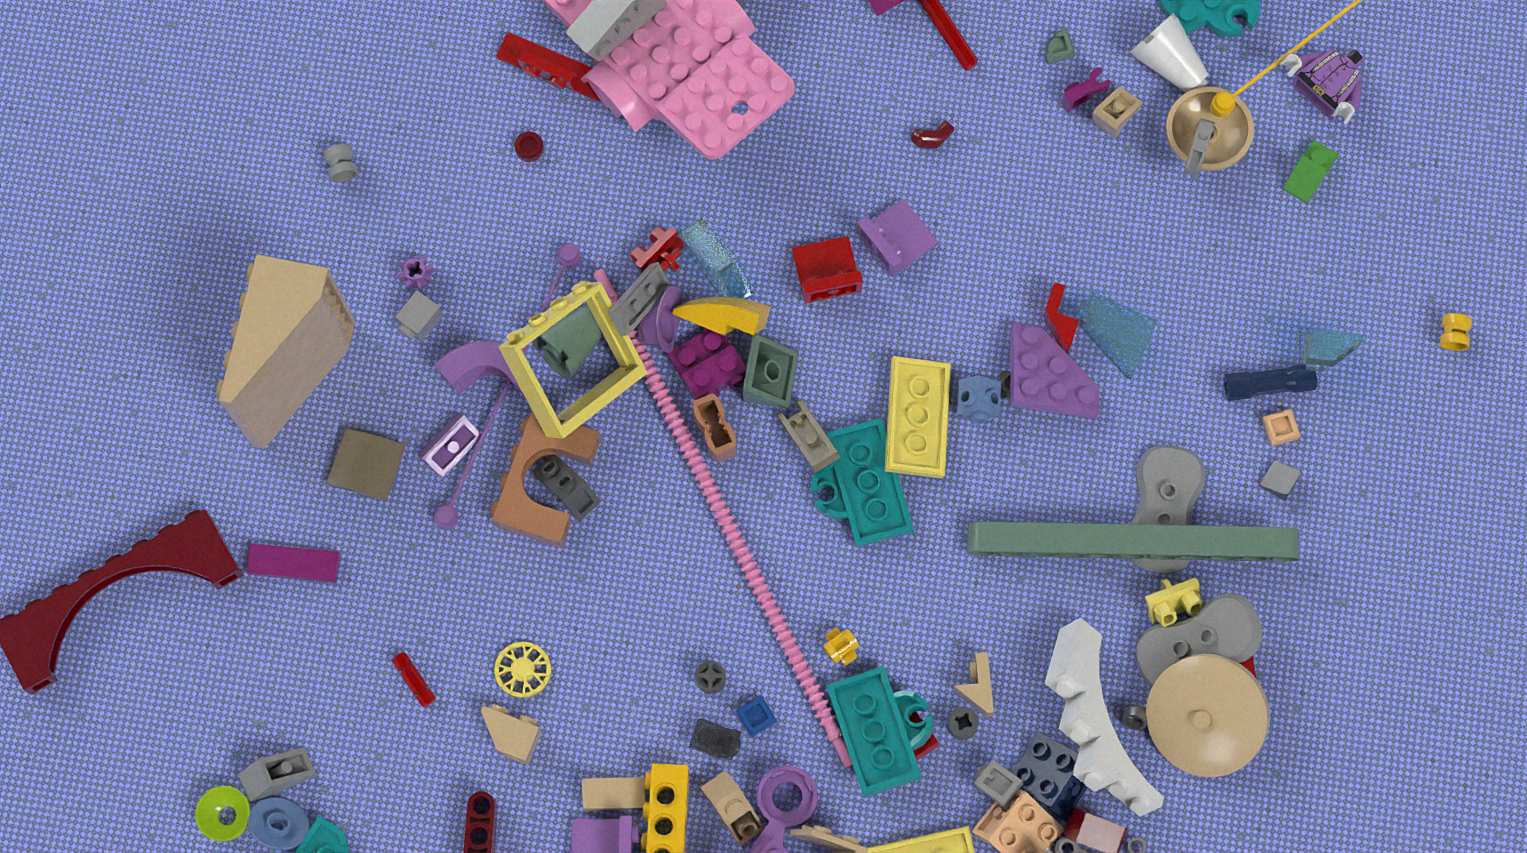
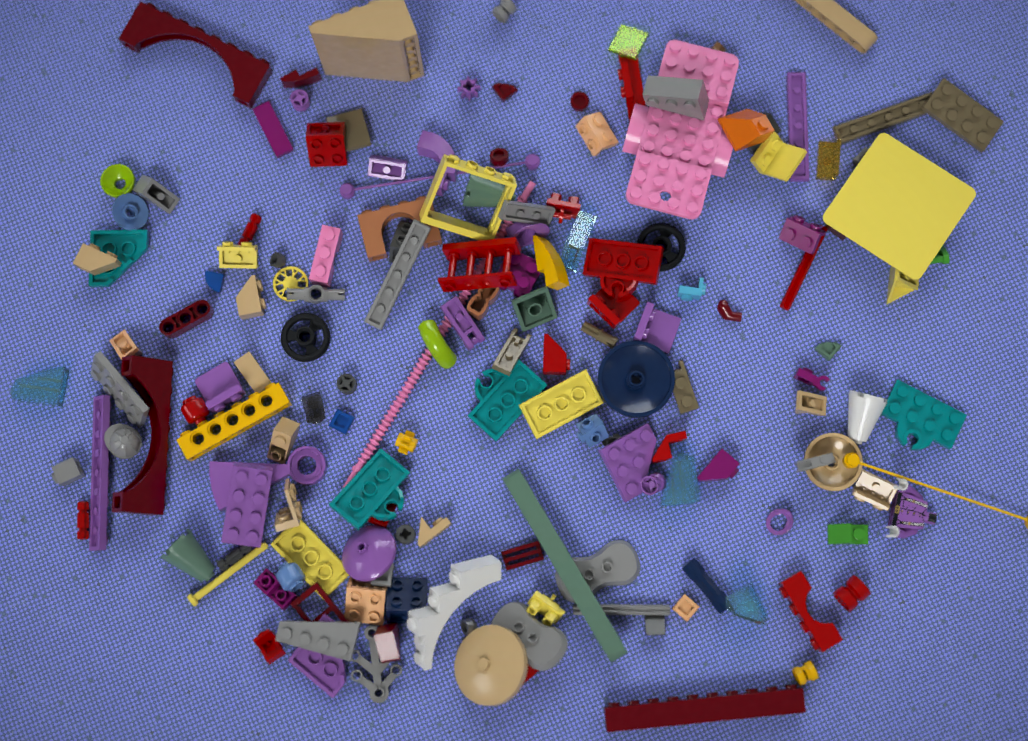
camera: 55 degrees right, 5 degrees up
(247, 489) = (294, 80): none -> dark red slope
(274, 497) = (298, 96): none -> medium lavender wheel
(366, 501) = (326, 144): none -> red bracket
(418, 317) = (445, 105): light grey brick -> none
(439, 713) = (238, 255): none -> light yellow bracket
(449, 231) = (504, 91): none -> dark red tile
(450, 768) = (214, 280): none -> blue tile
(479, 665) = (277, 260): none -> dark grey hinge
(492, 36) = (628, 41): none -> clear neon green piece
(518, 597) = (323, 262): none -> bright pink arch
(534, 292) = (499, 157): none -> dark red tile
(554, 655) = (326, 294): none -> light grey pin
(587, 151) = (596, 133): none -> light nougat bracket
(602, 667) = (288, 335): none -> black wheel
(609, 516) = (397, 274): none -> light grey tile
(646, 390) = (479, 249): none -> red fence
(728, 474) = (462, 322): none -> medium lavender plate
(735, 524) = (436, 344): none -> lime cylinder
(786, 224) = (622, 264): none -> red plate
(817, 160) = (665, 231): none -> black wheel
(850, 388) = (554, 358): none -> red slope
(857, 313) = (599, 334): none -> dark tan axle
(877, 167) = (688, 293): none -> medium azure bracket
(947, 301) = (636, 379): none -> dark blue dish
(974, 790) = (376, 556): none -> medium lavender dish
(993, 255) = (683, 391): none -> dark tan hinge
(1091, 566) = (506, 560): none -> dark red tile
(1100, 370) = (653, 483): none -> medium lavender wheel
(1127, 271) = (719, 468): none -> magenta slope
(1242, 496) = (630, 609): none -> light grey axle
(1252, 232) = (789, 523): none -> medium lavender piece
(1277, 103) = (874, 490): none -> tan bracket
(1344, 278) = (796, 590): none -> red arch
(1389, 212) = (849, 595): none -> red wheel
(1425, 486) = (704, 709): none -> dark red brick

